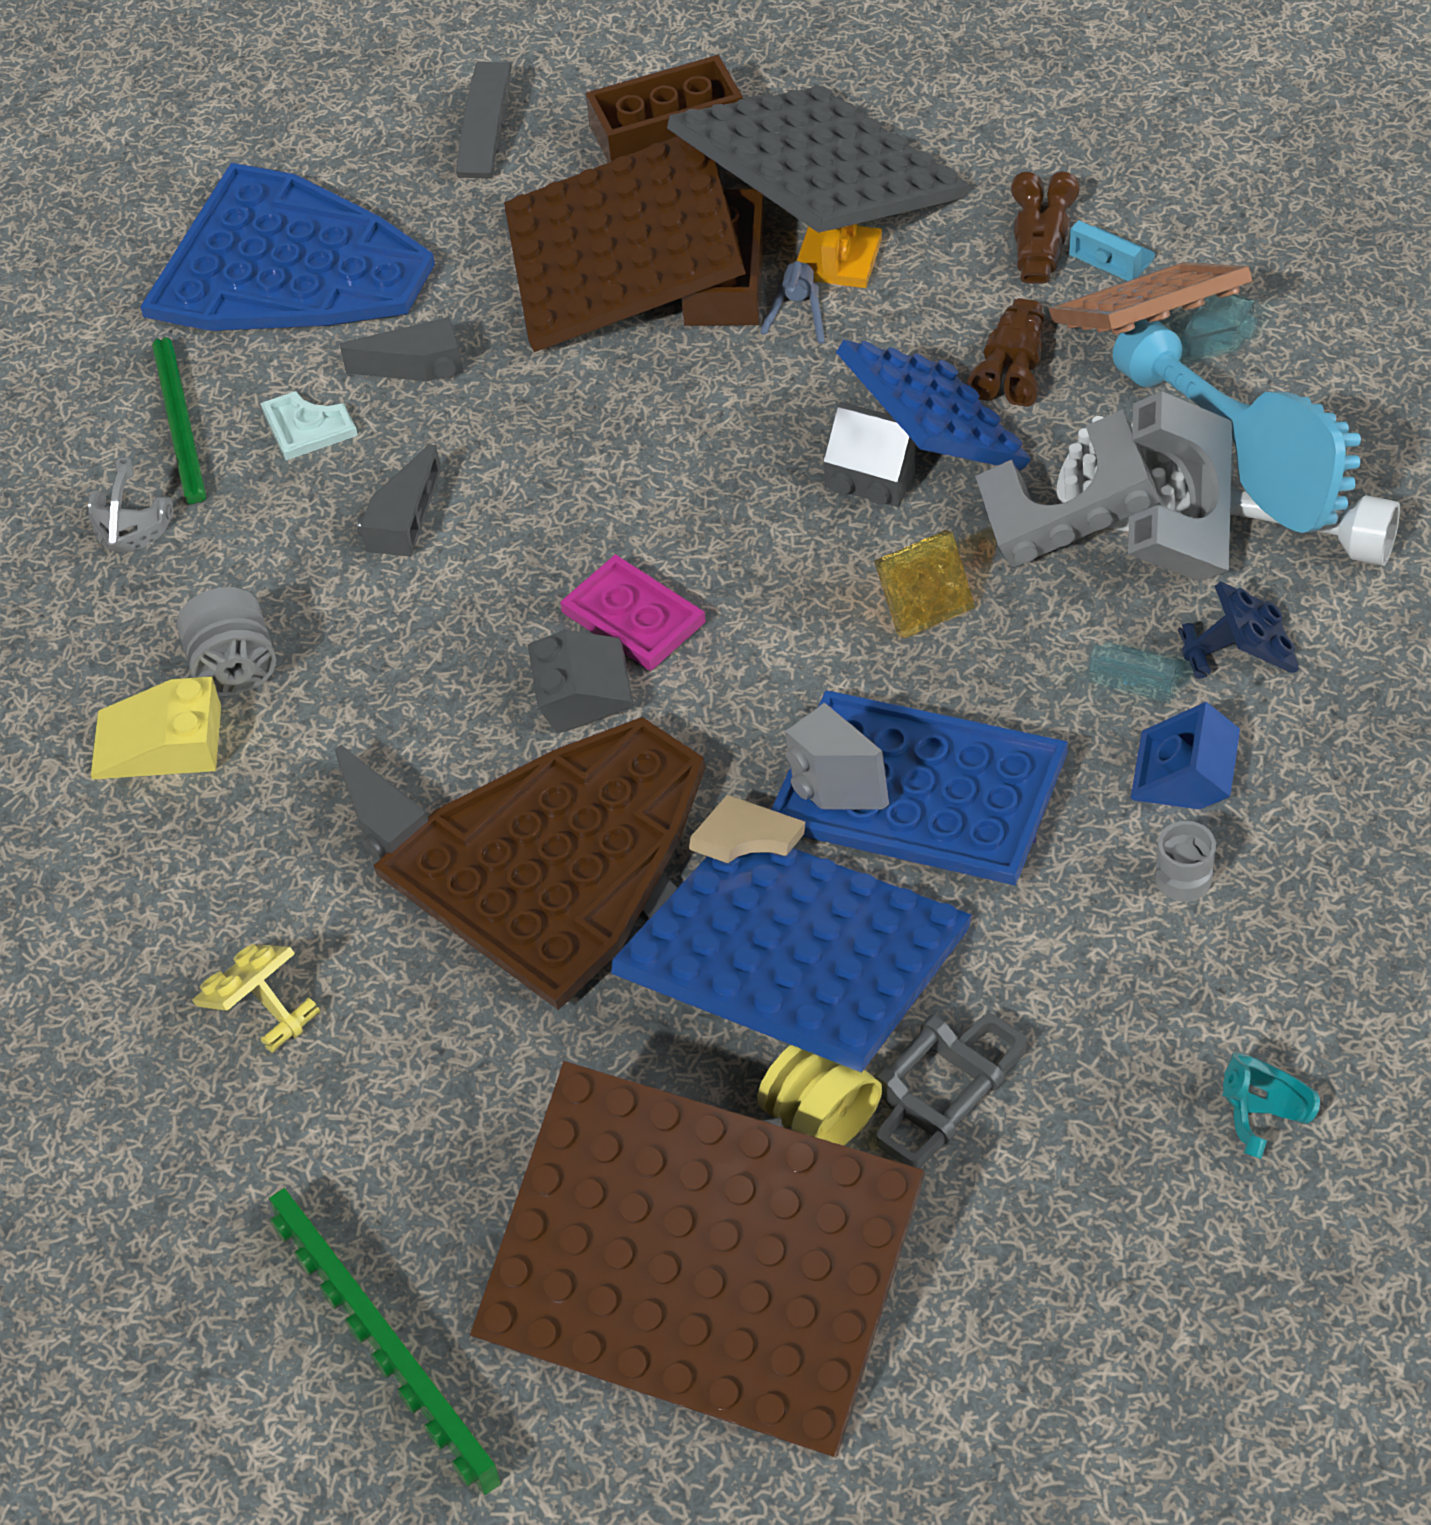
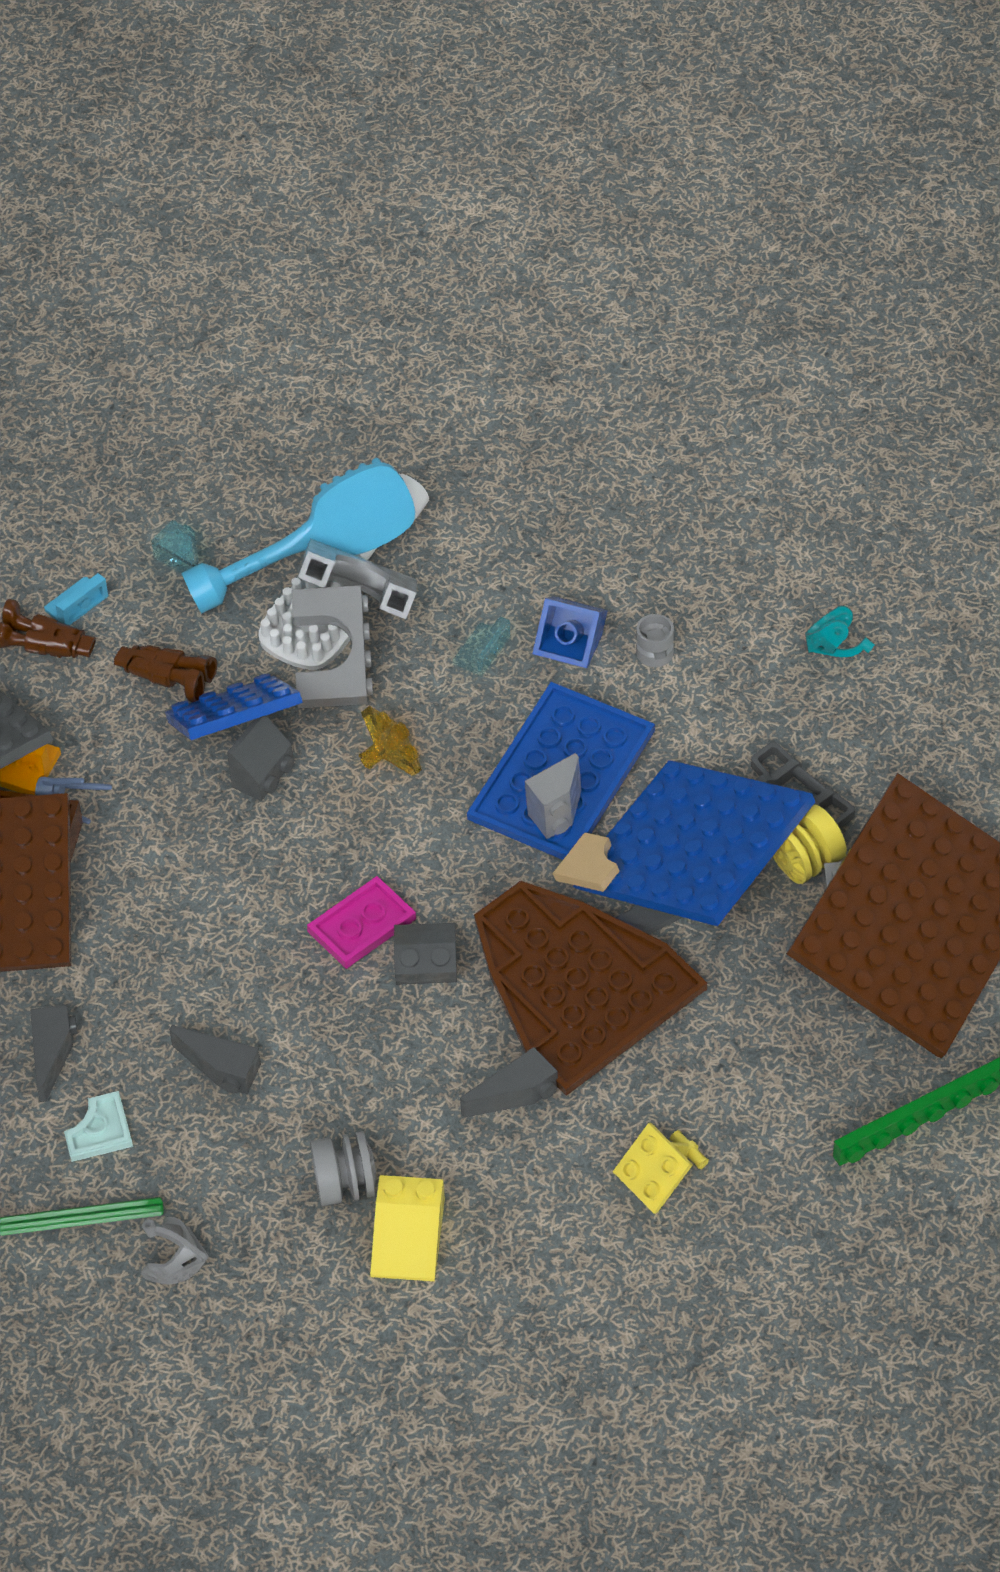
camera: 85 degrees left, 0 degrees up
(1151, 296) = (158, 571): nougat plate -> none
(1246, 621) = (458, 571): dark blue plate -> none

